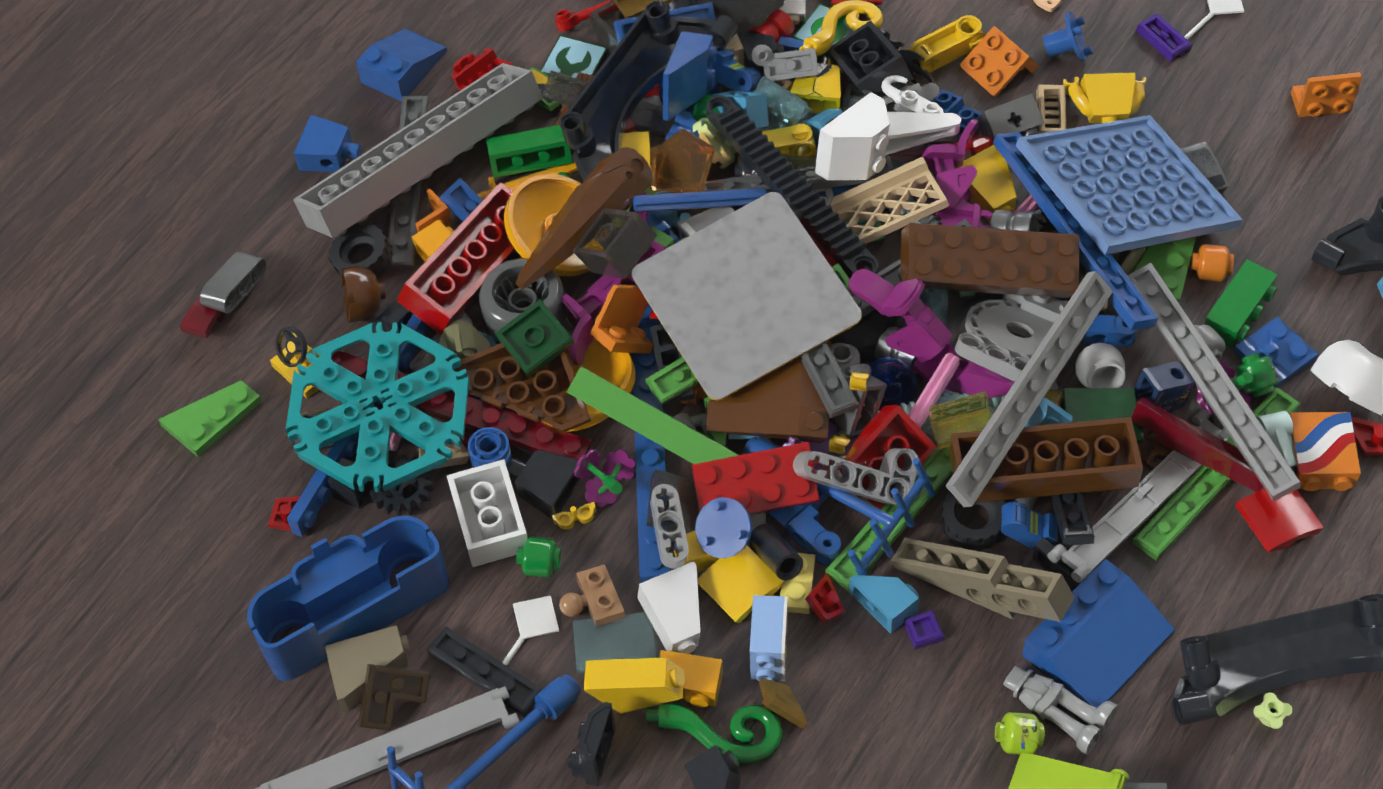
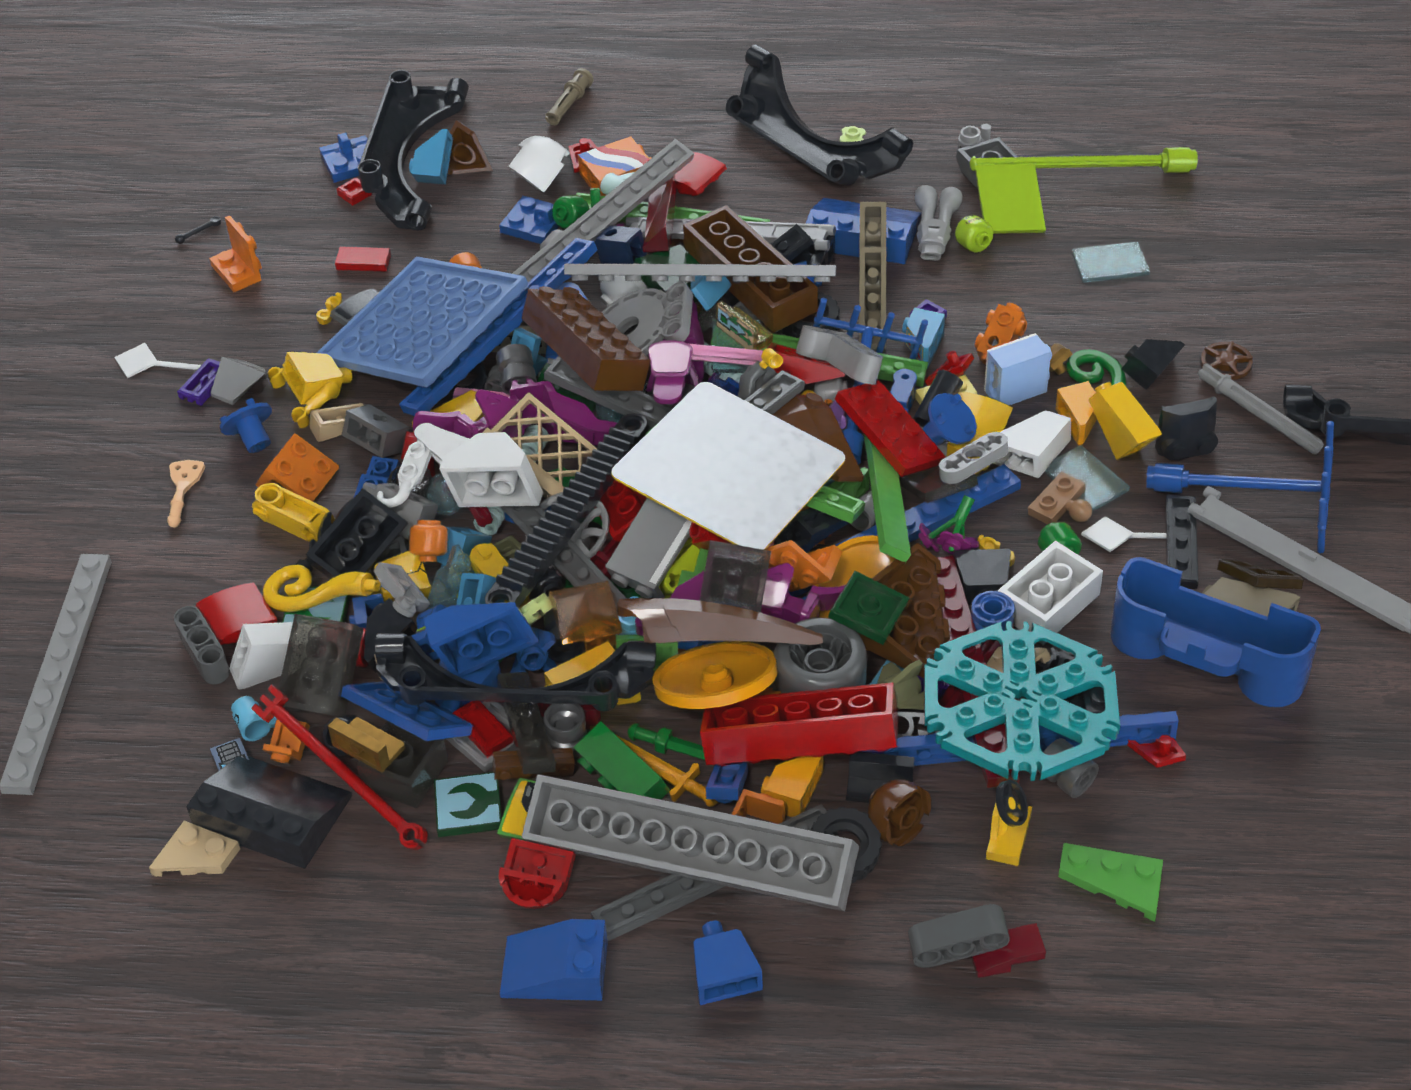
camera: 120 degrees left, 10 degrees down
(696, 200) = (625, 566): blue axle -> none
(828, 94) = (428, 540): none -> orange head
(836, 660) = (1003, 324): none -> orange brick
(1153, 57) = (235, 379): none -> light grey slope
(1223, 154) = (332, 302): none -> yellow piece
(1242, 302) = (500, 243): green brick -> none
(1284, 196) = (363, 259): none -> tile

